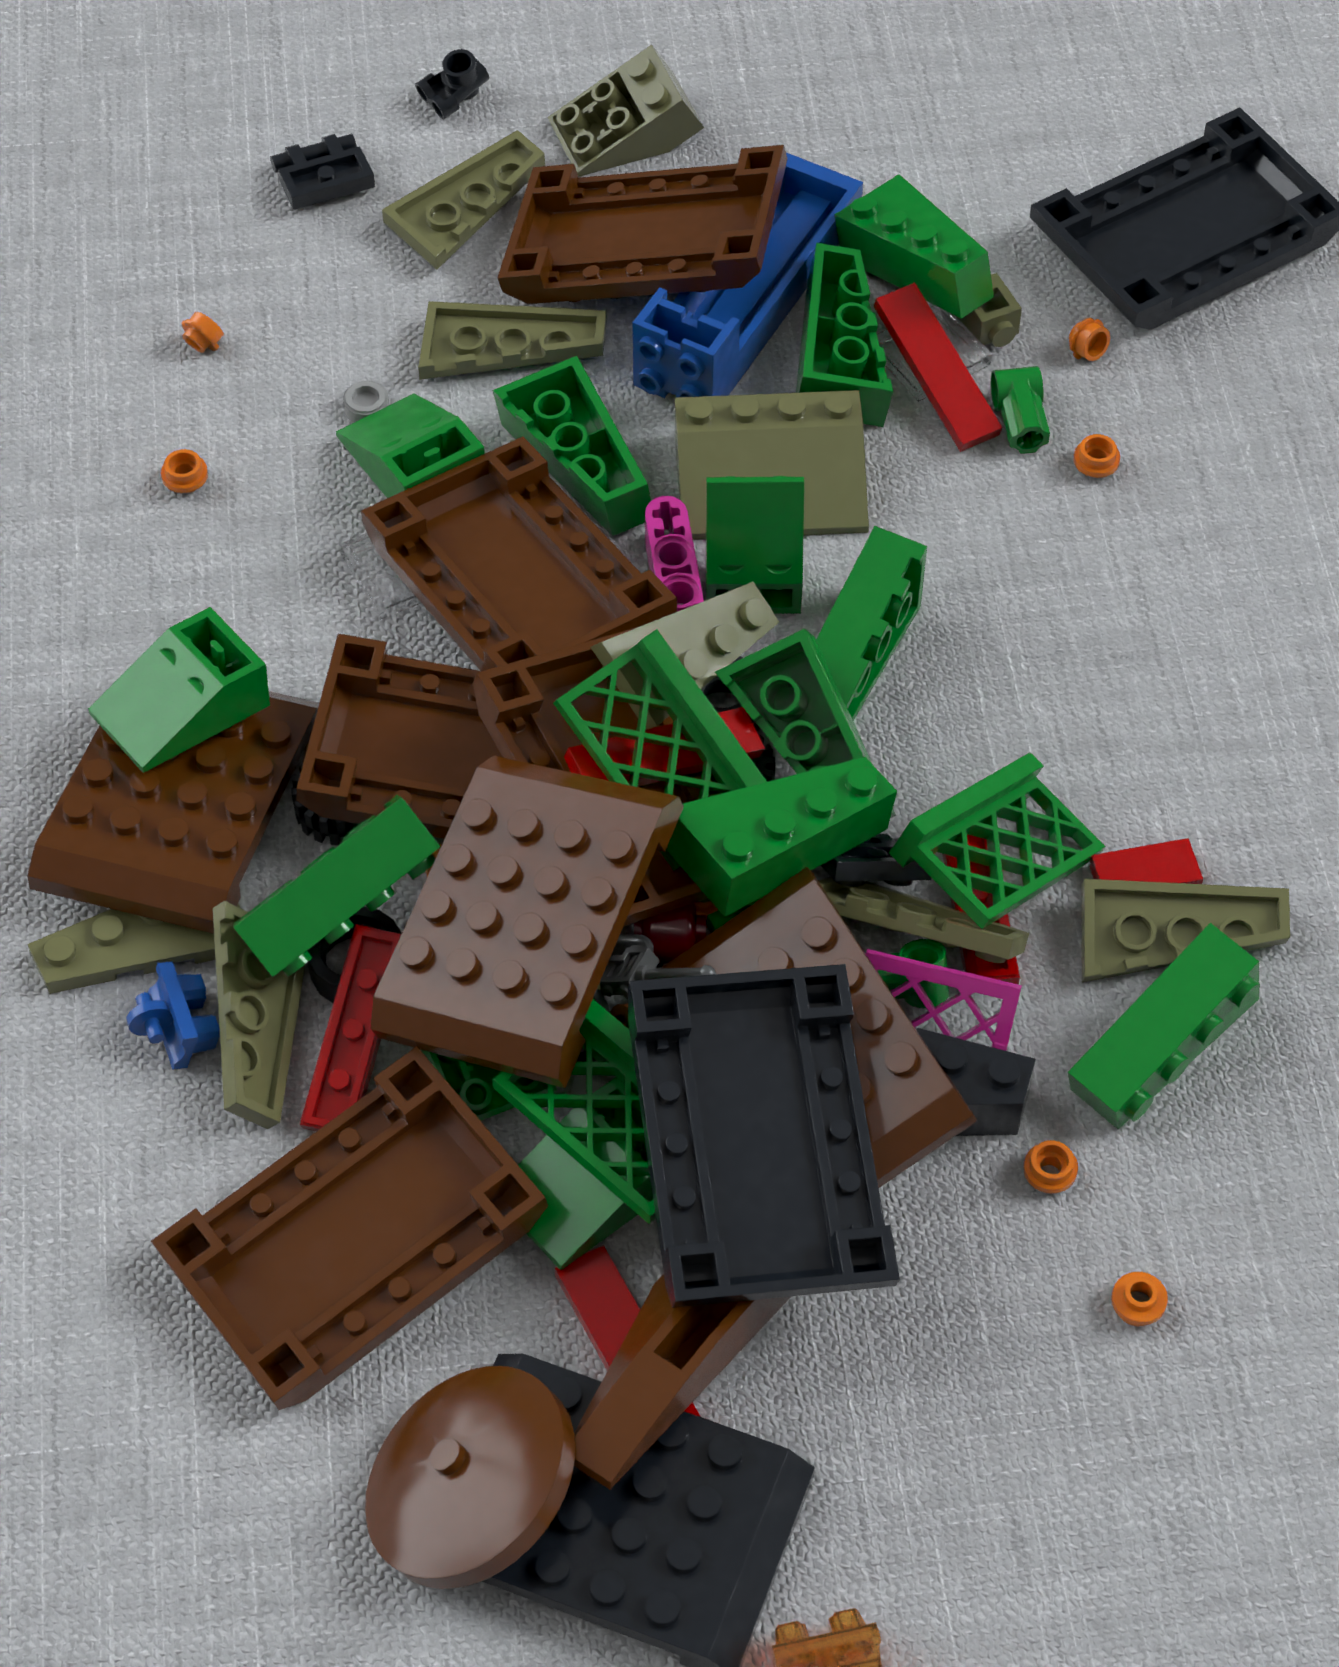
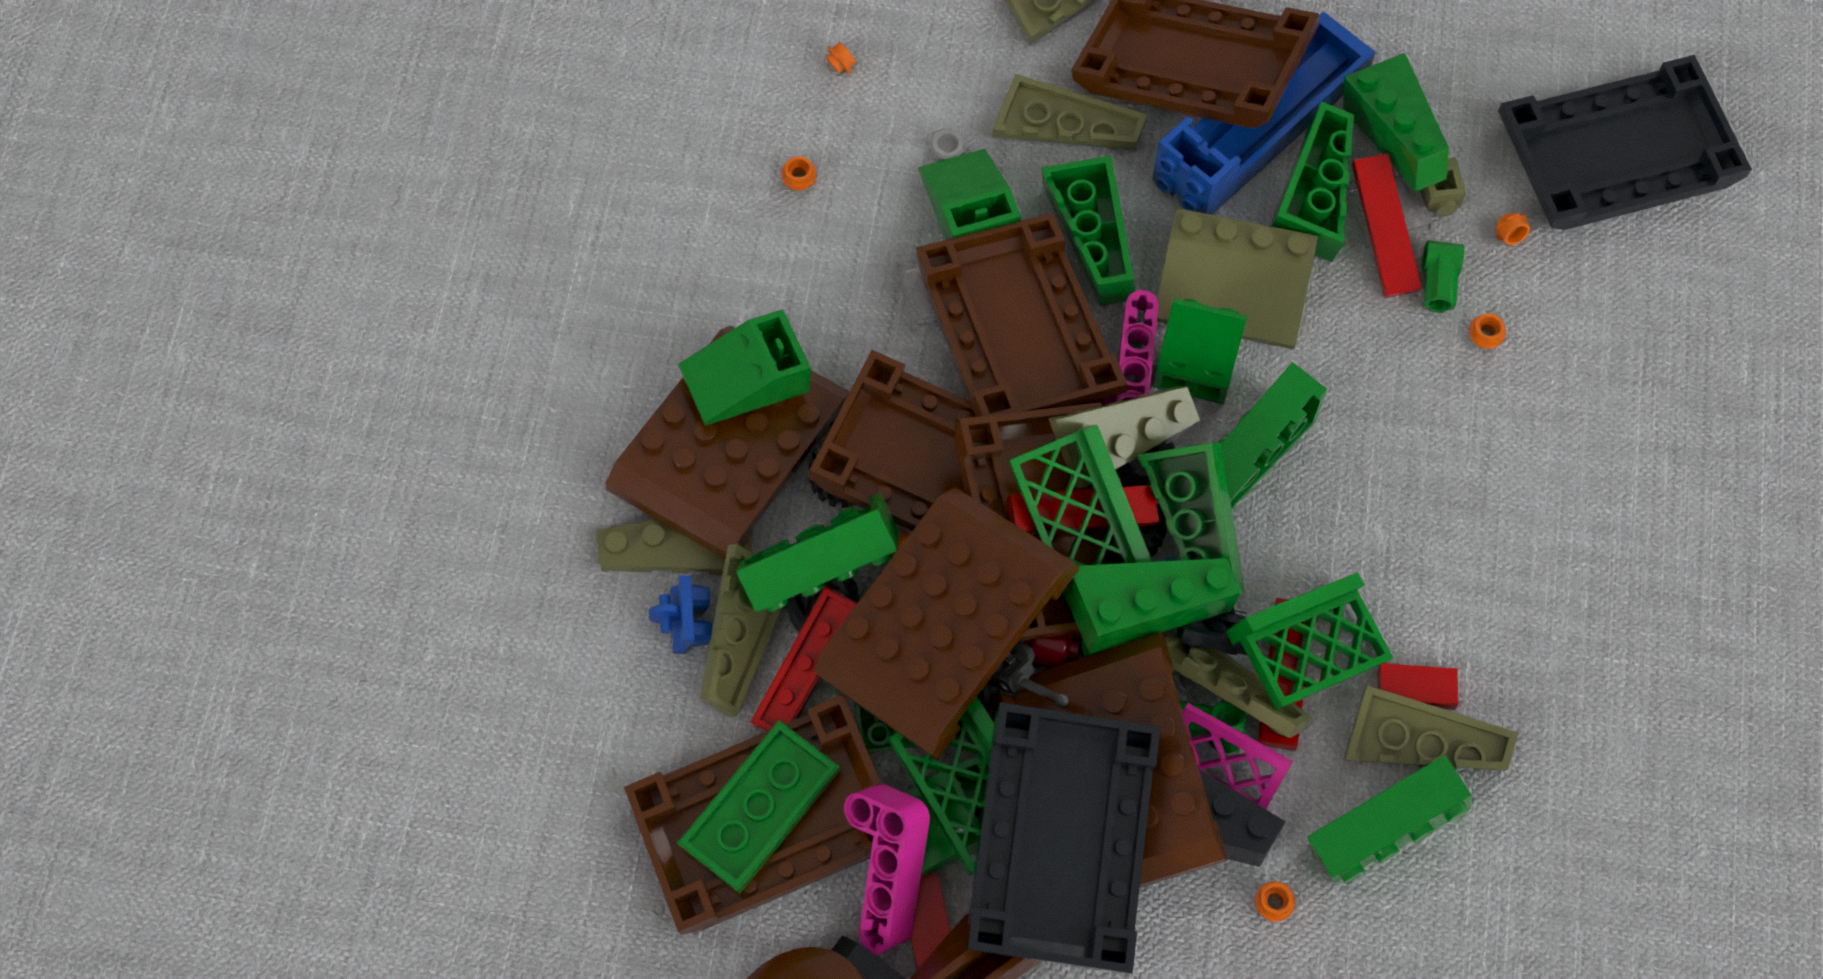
camera: 15 degrees right, 10 degrees up
(341, 1218) = (759, 806): none -> green tile
(550, 1315) = (895, 865): none -> dark pink beam

